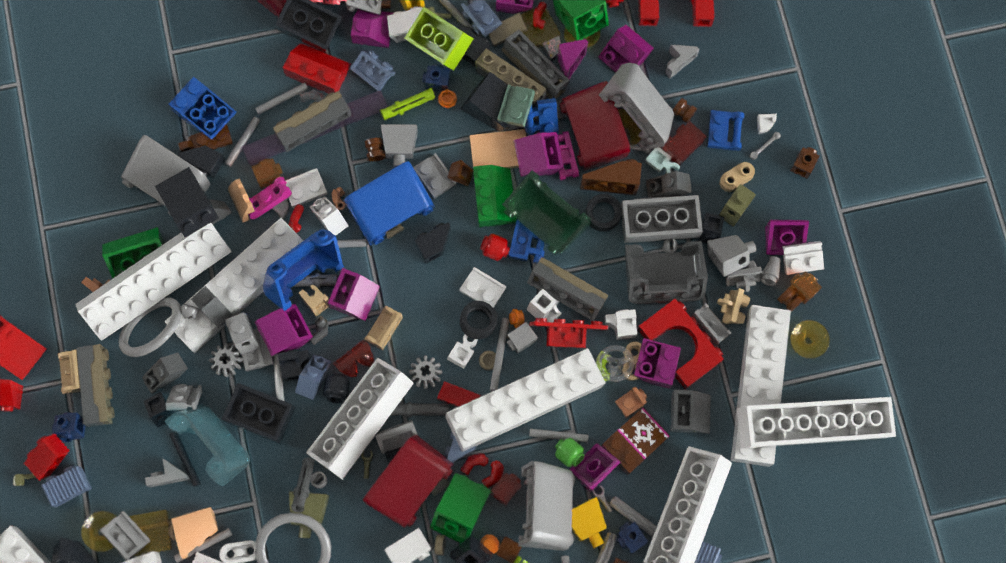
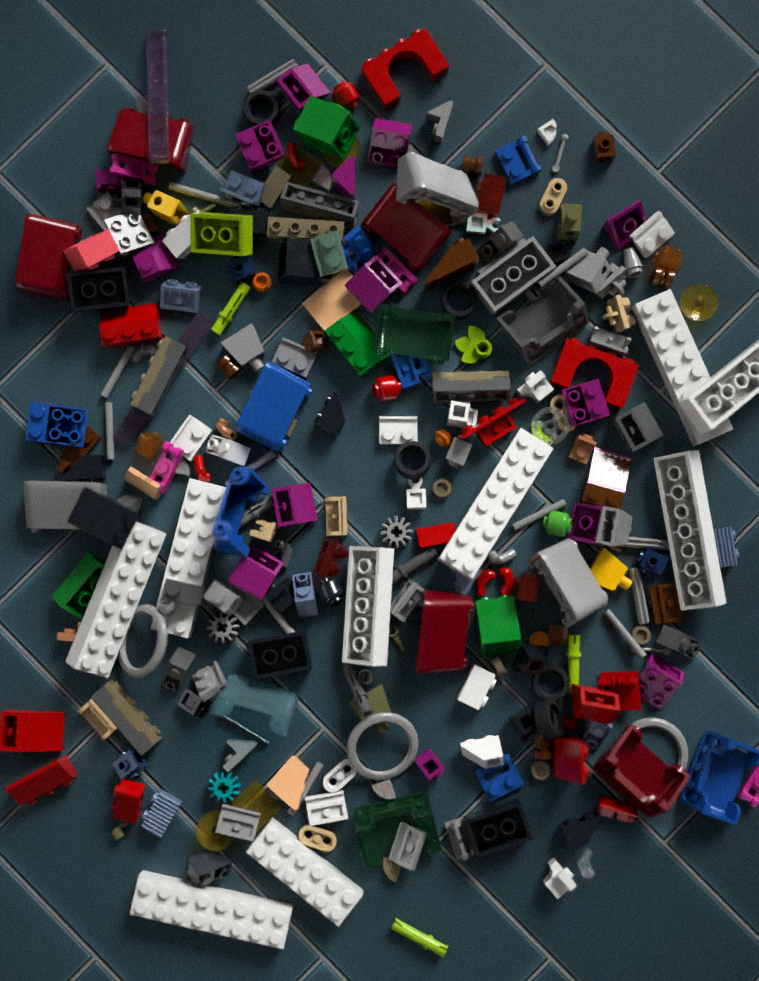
camera: 25 degrees left, 10 degrees up
(138, 490) = (217, 782): none -> teal gear
(499, 354) = (449, 479): light grey bar -> none
(502, 452) = (502, 558): none -> light grey arm
(590, 256) = (470, 345): none -> lime plate
(616, 483) = (614, 527): none -> light grey torso
(707, 237) = (561, 268): none -> light grey bar

